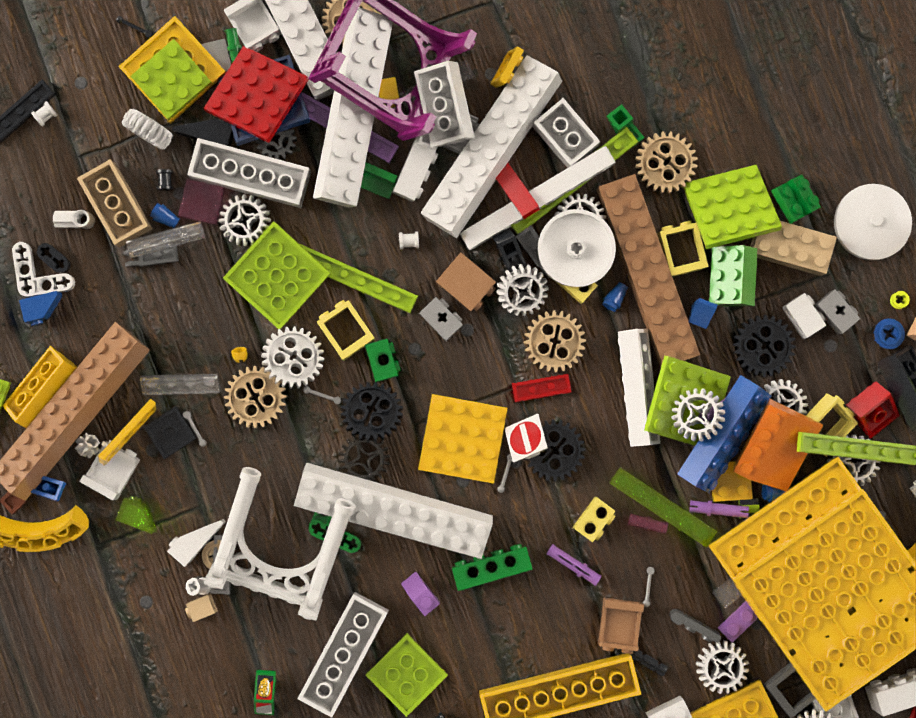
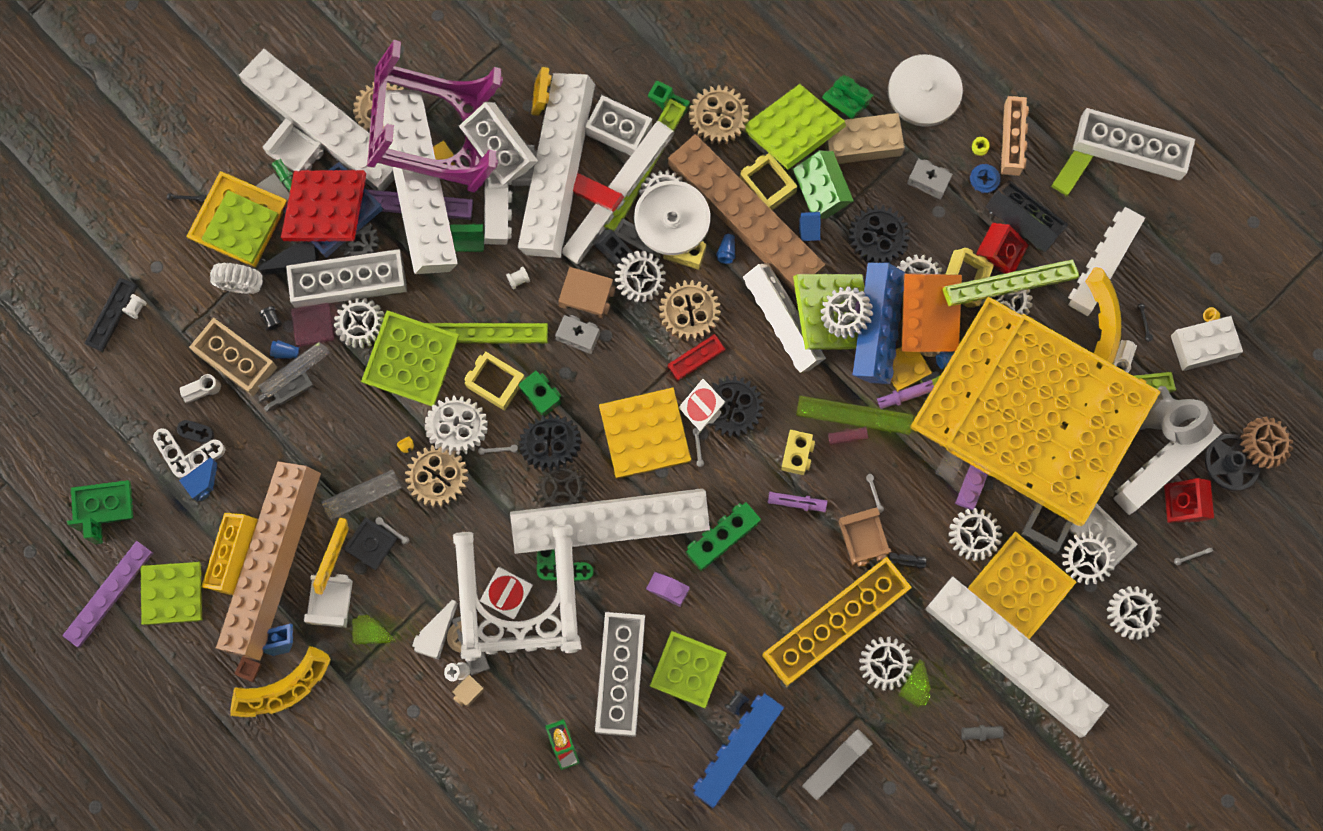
camera: 20 degrees left, 10 degrees down
(87, 445) = (297, 587): white gear -> none
(272, 533) = (506, 593): none -> piece
(694, 625) = (931, 508): dark grey hinge -> none
(804, 315) = (902, 194): white brick -> none

